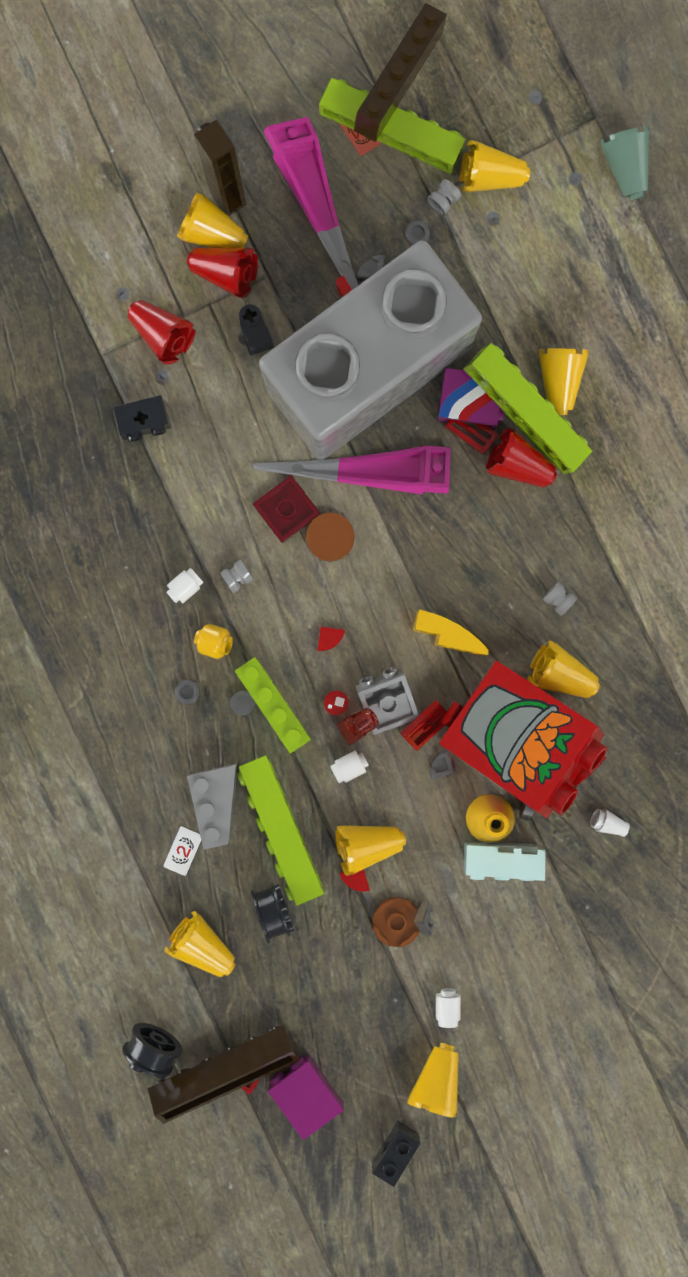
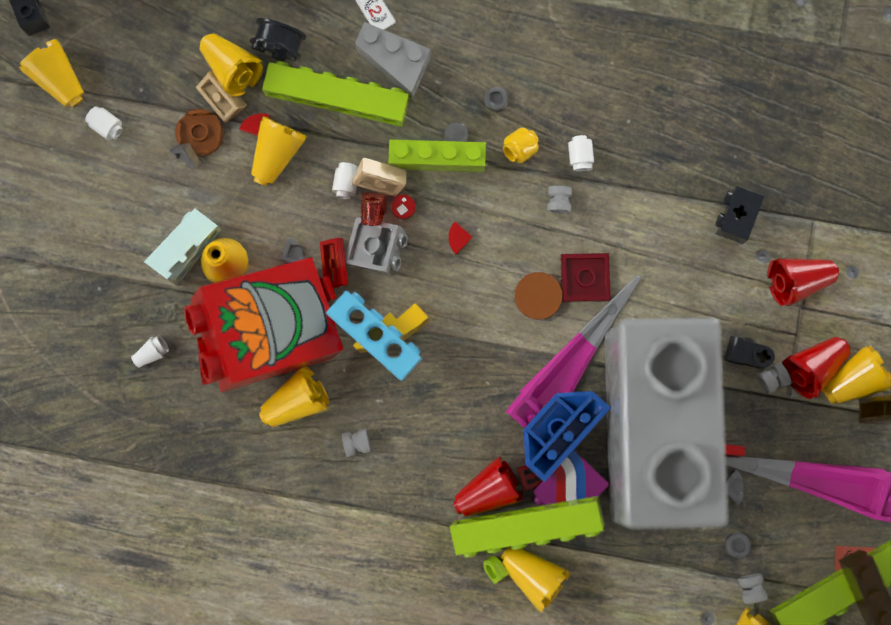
camera: 125 degrees right, 5 degrees down
(260, 296) = (774, 378): none -> light grey wheel
(320, 939) = (231, 64): none -> yellow cone
(326, 739) = (380, 177): none -> tan slope
(351, 927) = (219, 100): none -> tan slope
(431, 437) = (560, 429): none -> blue wedge
(480, 602) = (341, 313): none -> medium azure brick
(579, 412) = (495, 569): none -> lime tile

